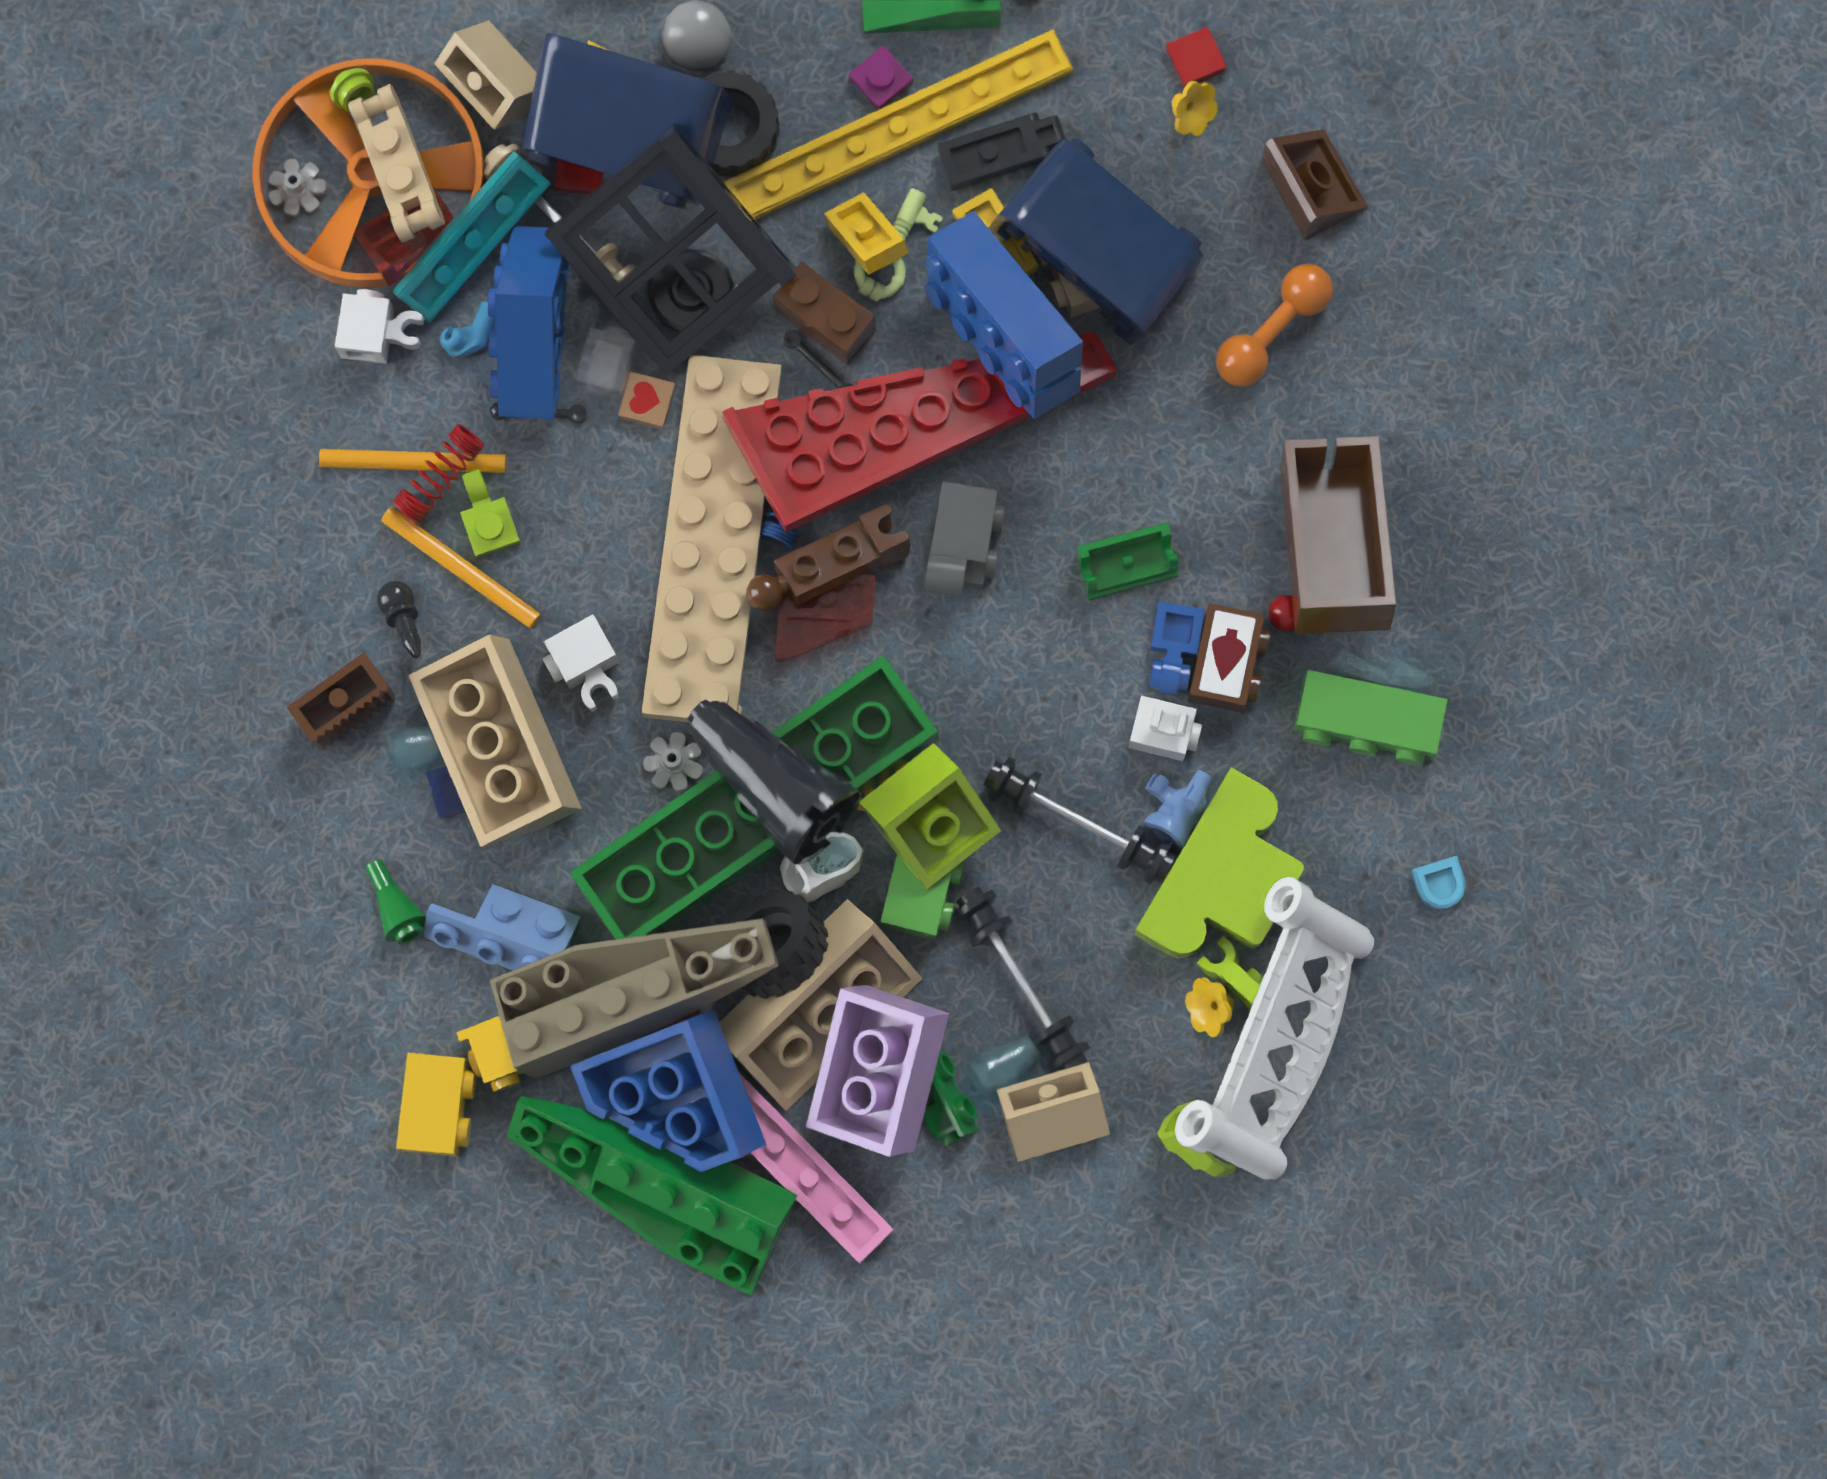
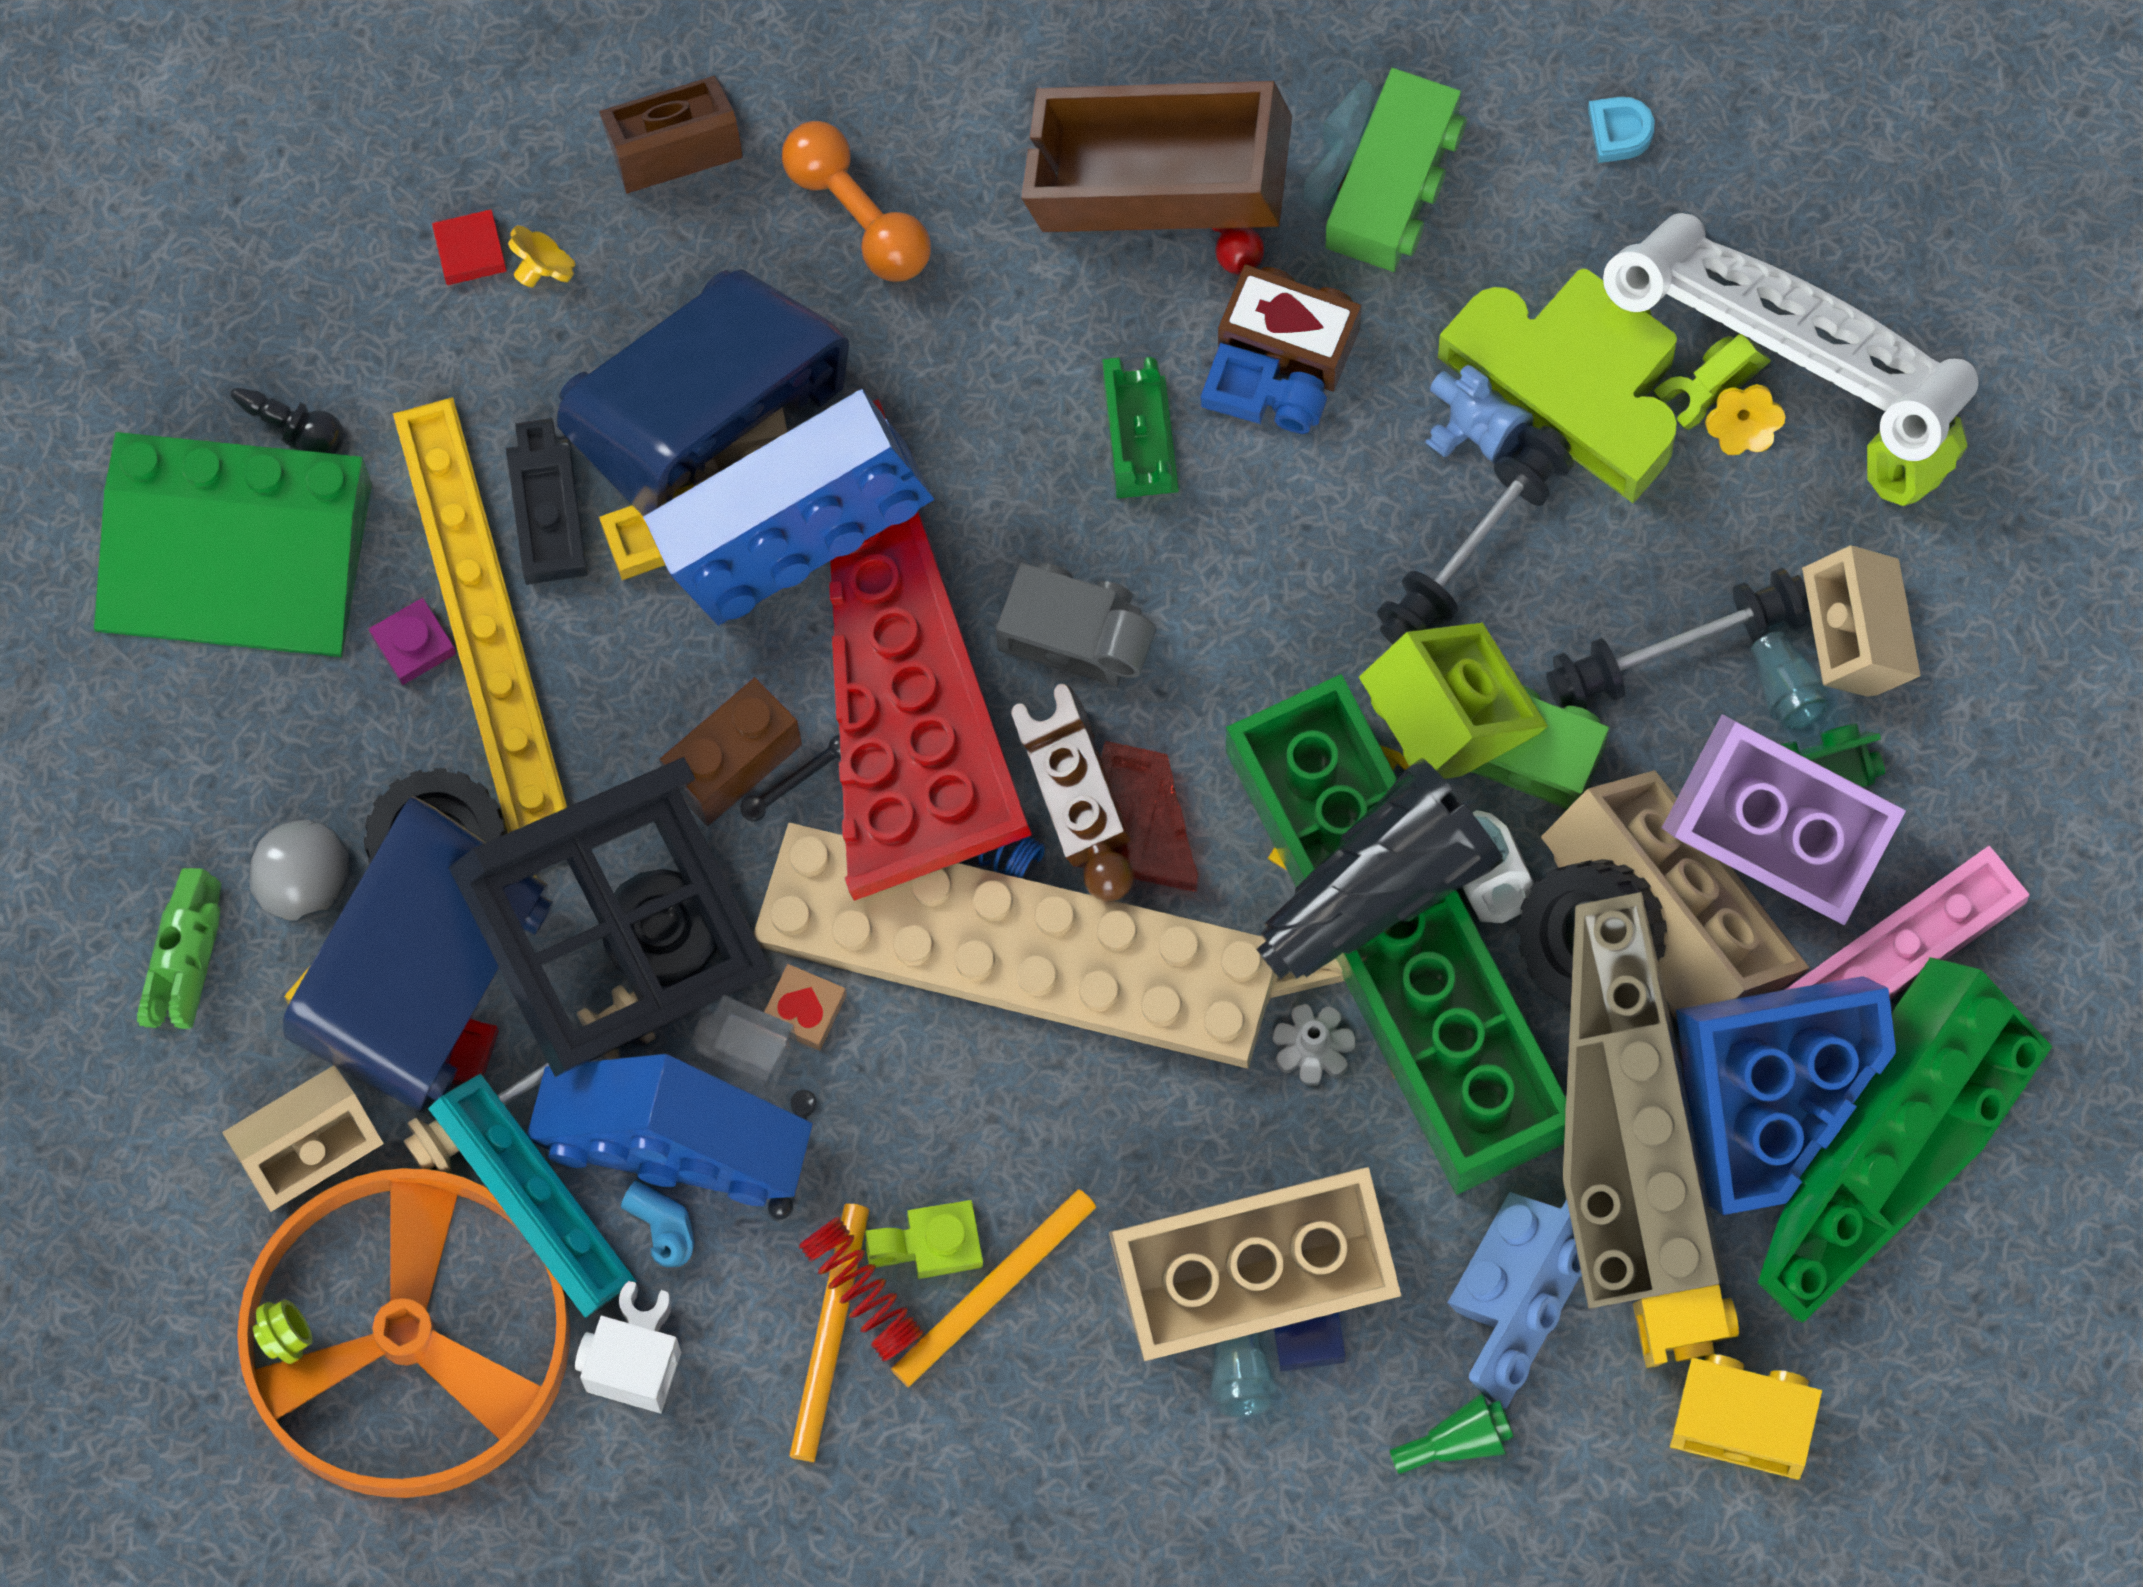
camera: 80 degrees left, 10 degrees down
(297, 188) = (402, 1439): light grey plant -> none
(341, 702) = (1165, 1460): reddish brown brick -> none
(385, 248) = (505, 1291): clear red wing -> none
(397, 163) = (409, 1275): tan plate -> none
(397, 603) = (1026, 1381): black bar -> none
(582, 656) = (1151, 1135): white brick -> none
(866, 233) = (631, 680): yellow plate -> none
(910, 213) = (657, 664): yellowish green piece -> none
(1164, 729) = (1370, 417): white brick -> none

